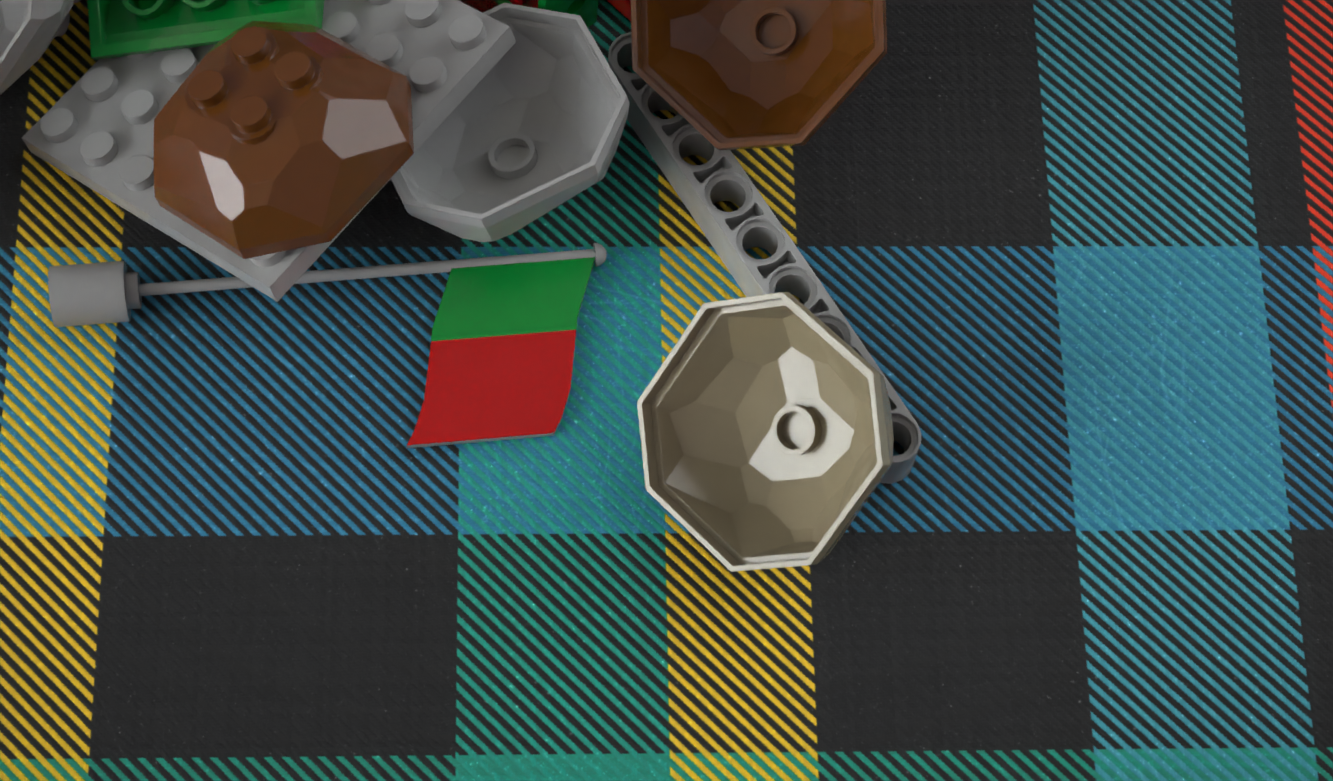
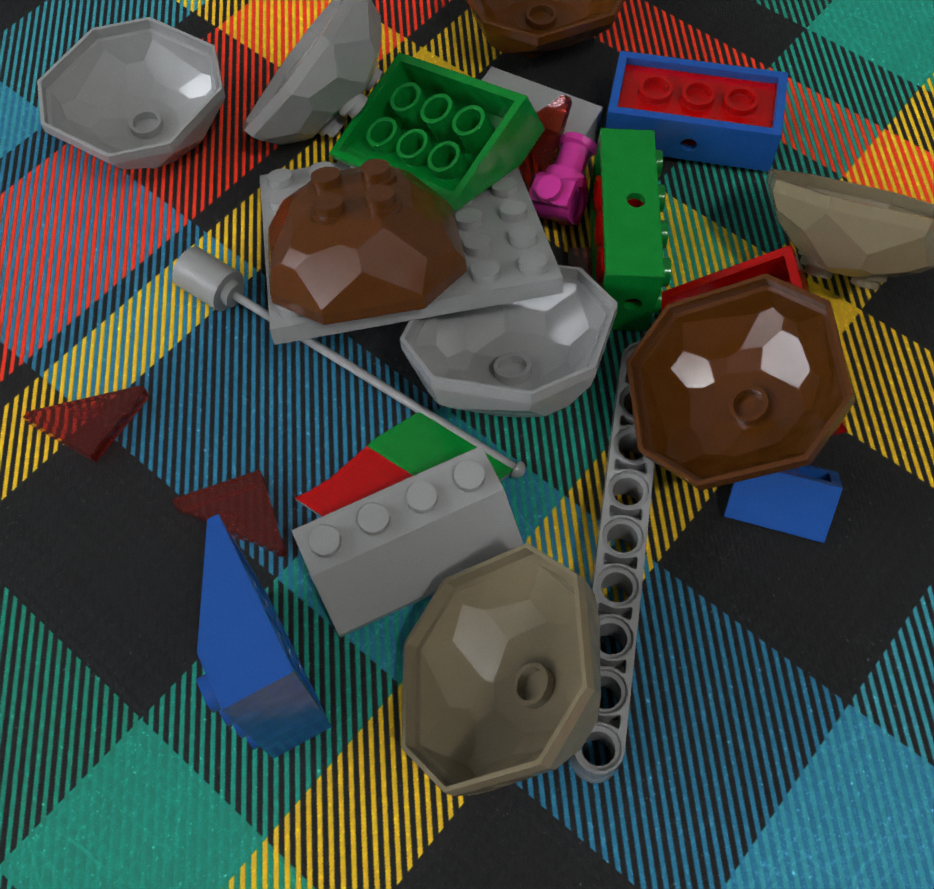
camera: 50 degrees right, 5 degrees down
(109, 541) = (90, 422): none -> clear red tile
(363, 498) = (242, 507): none -> clear red tile
(552, 573) = (248, 655): none -> blue slope
(566, 396) = (407, 540): none -> light grey slope
(879, 104) = (788, 501): none -> blue panel

